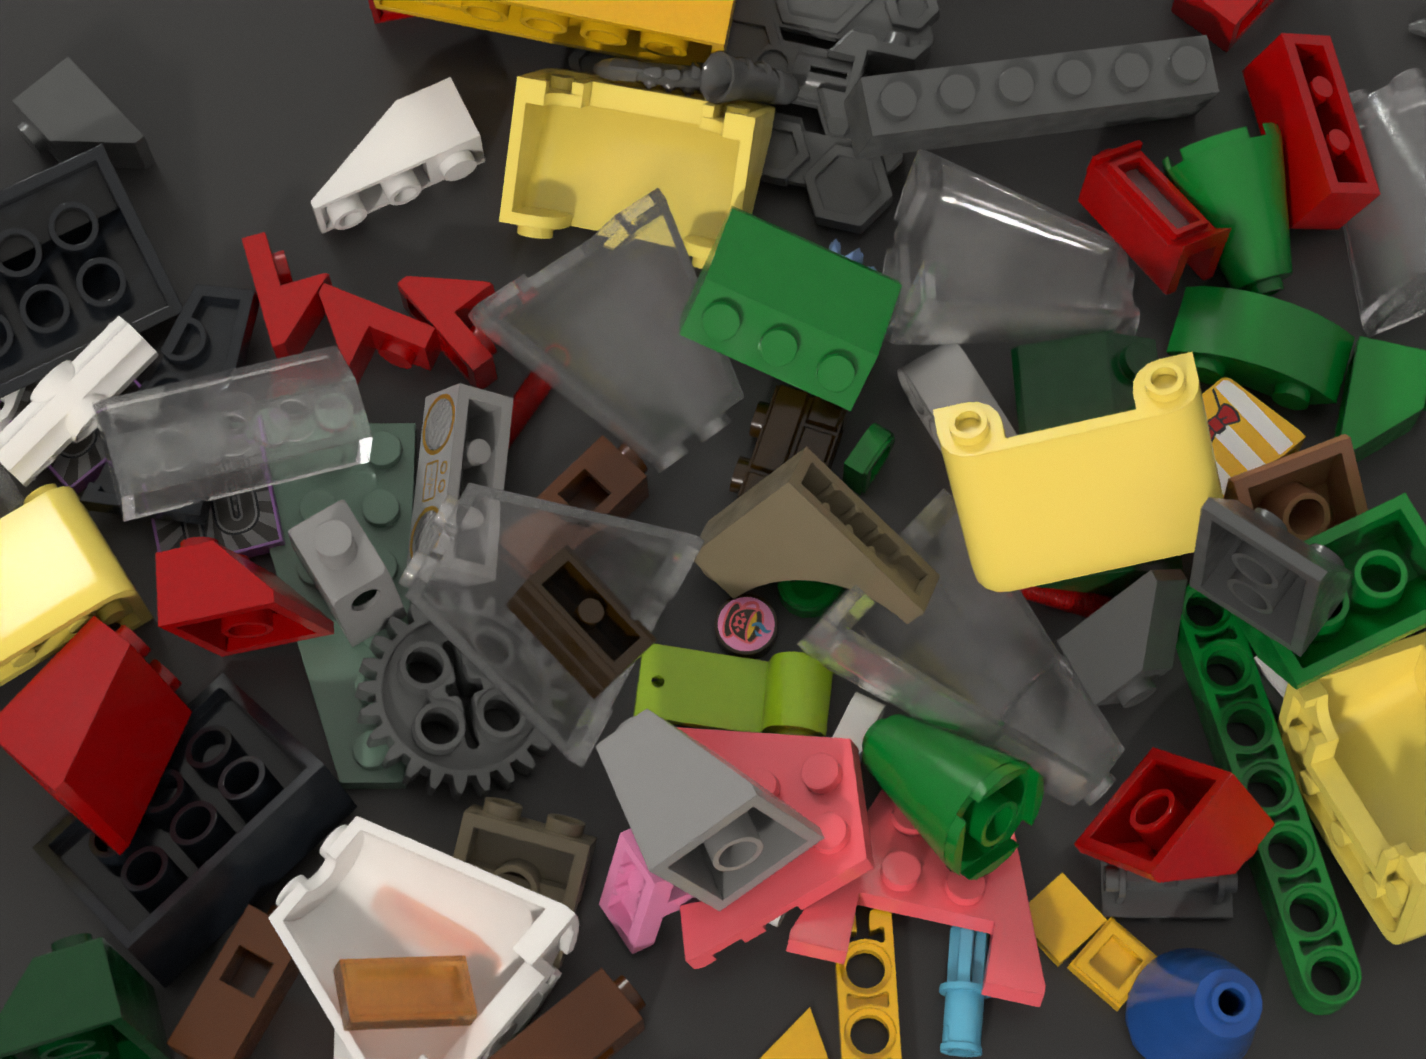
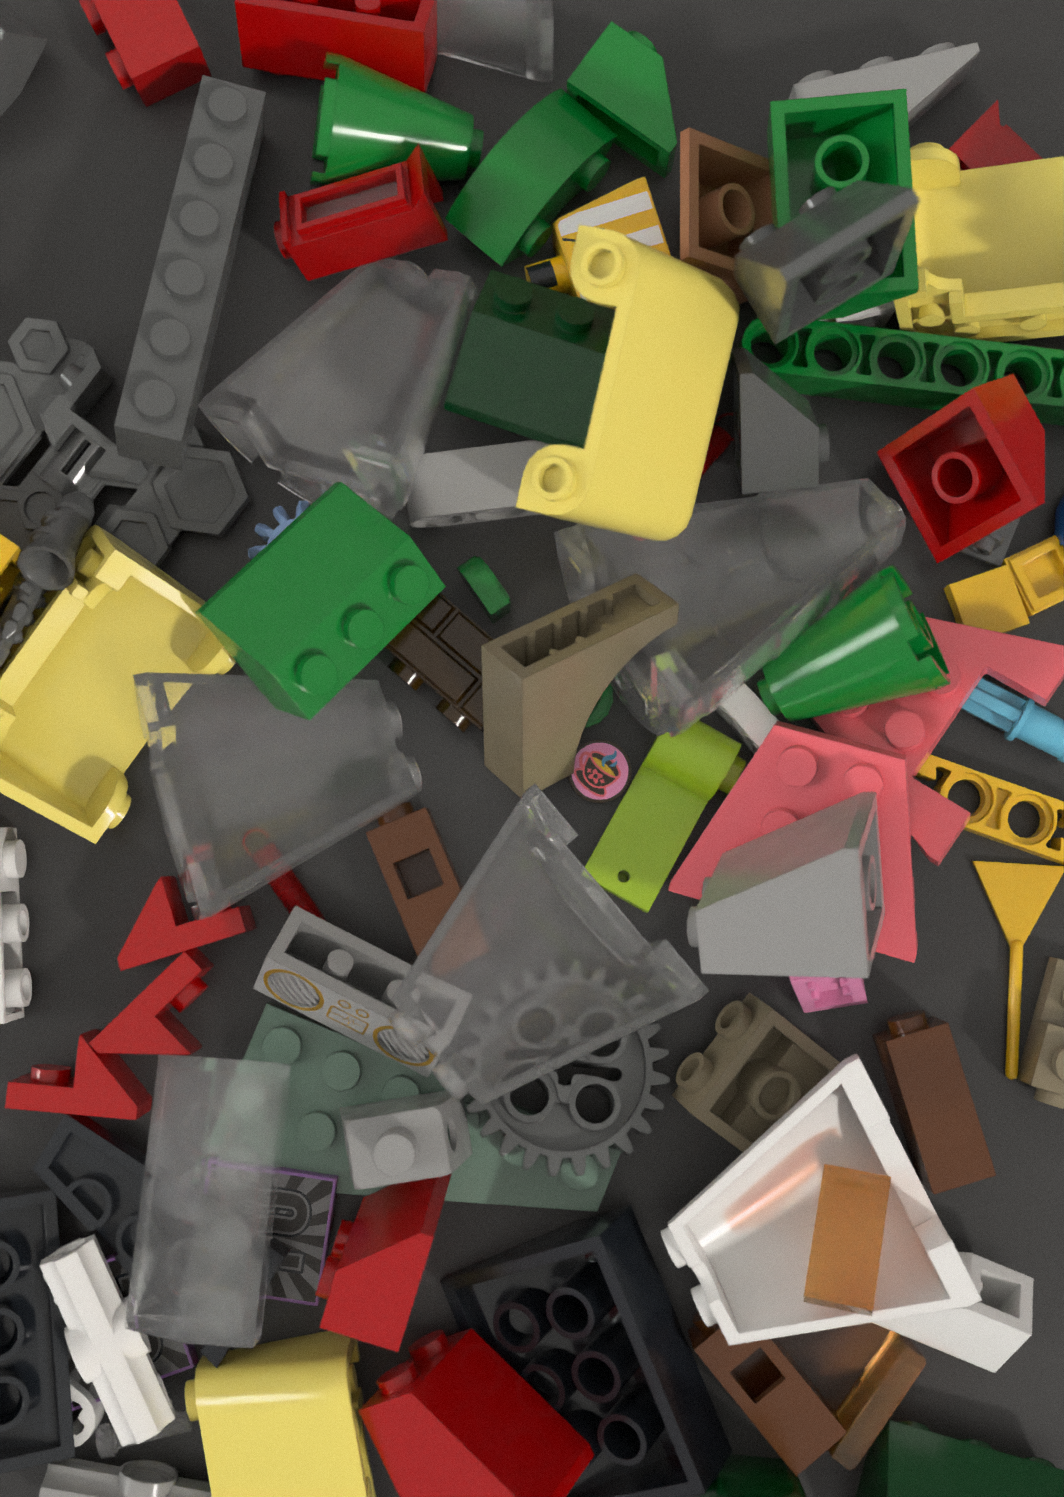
camera: 70 degrees left, 15 degrees up
(580, 621) = (567, 935): dark brown brick -> none

